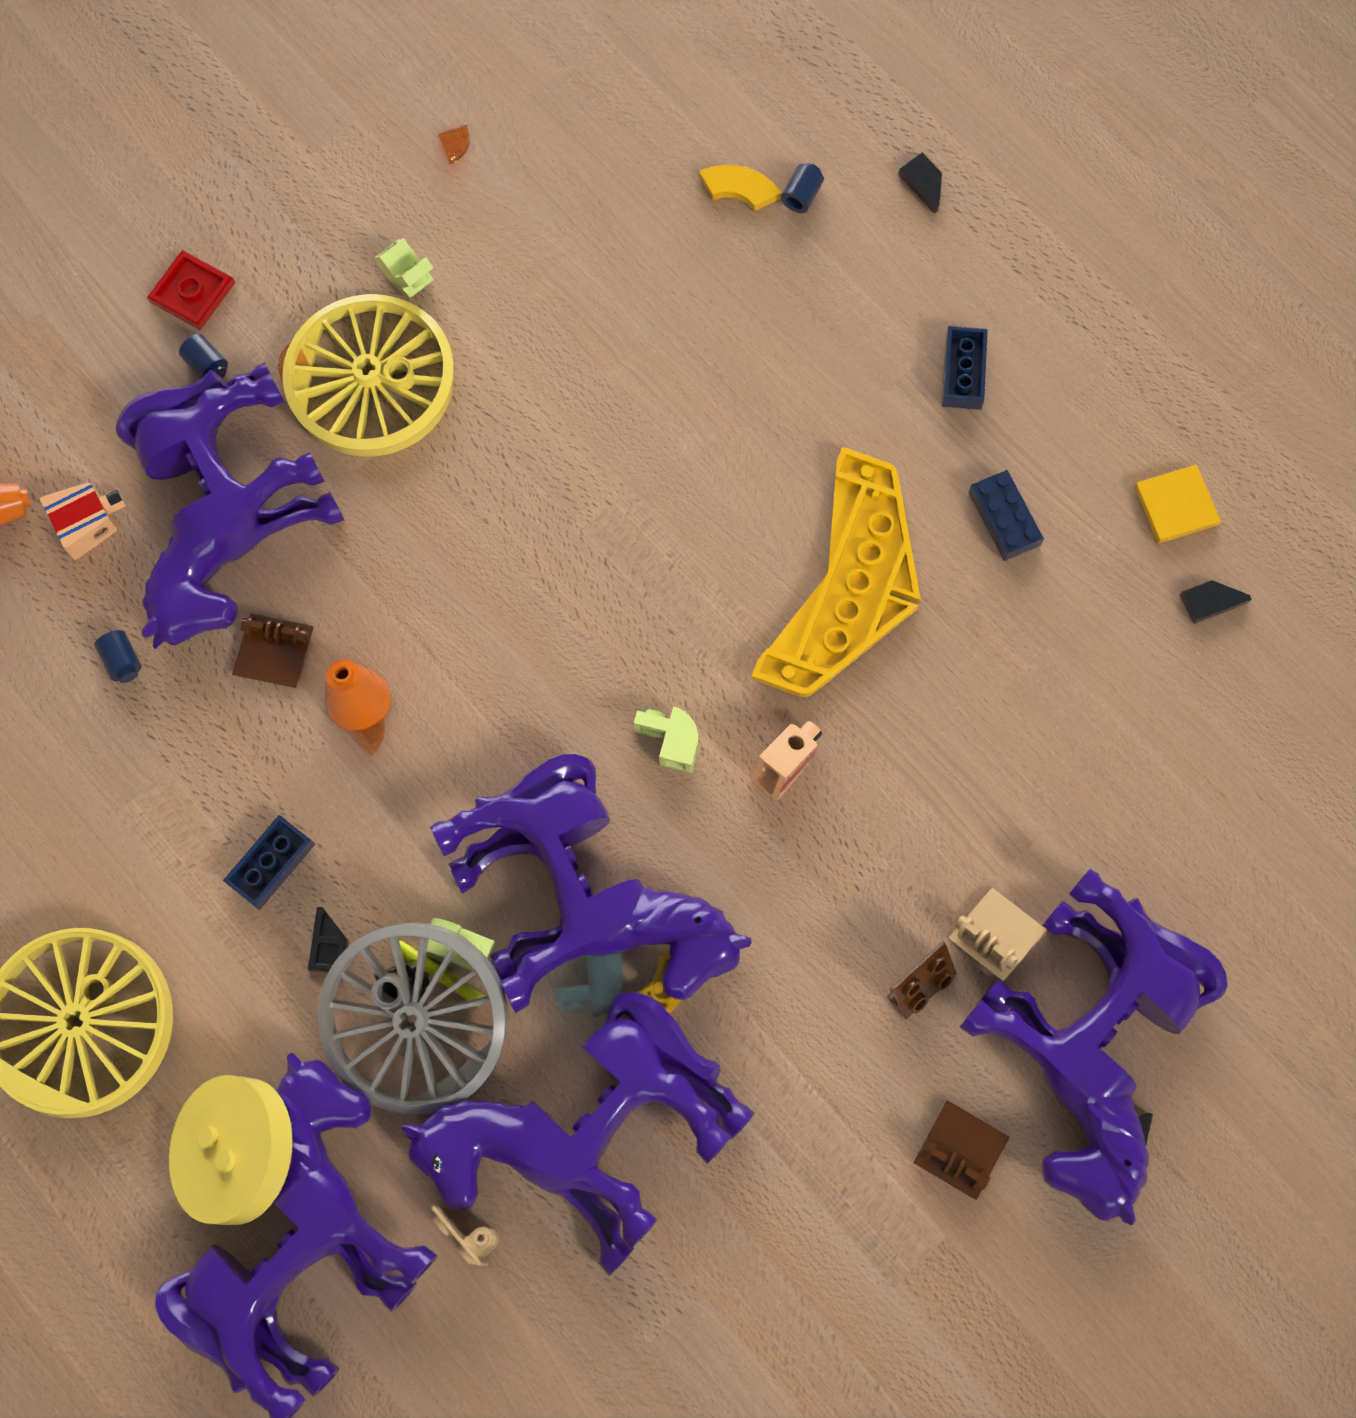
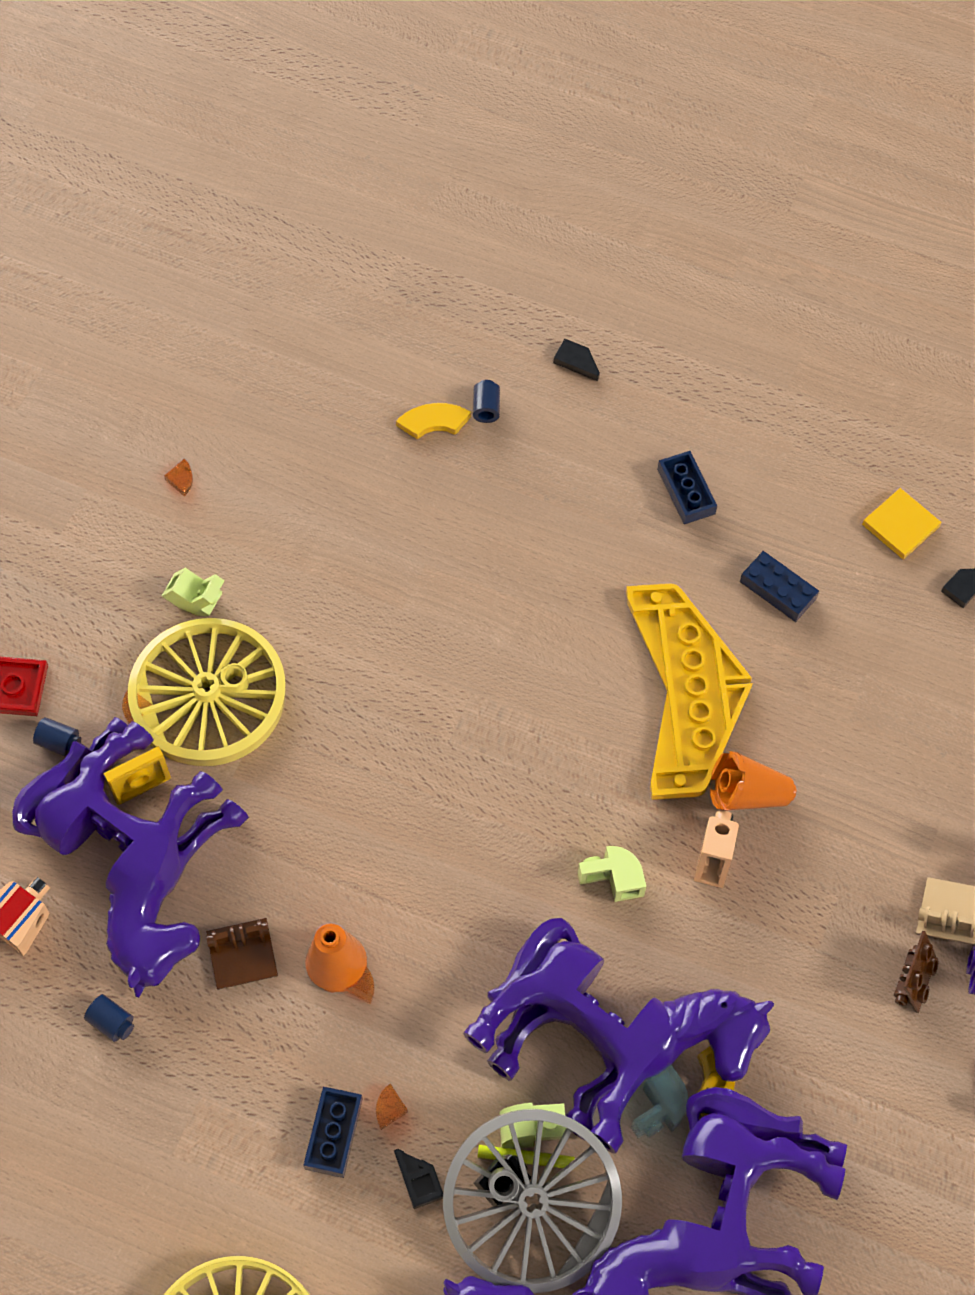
camera: 30 degrees left, 10 degrees down
(255, 430) = (137, 775): none -> yellow tile
(334, 863) = (389, 1107): none -> clear orange tile
(854, 710) = (749, 784): none -> orange cone

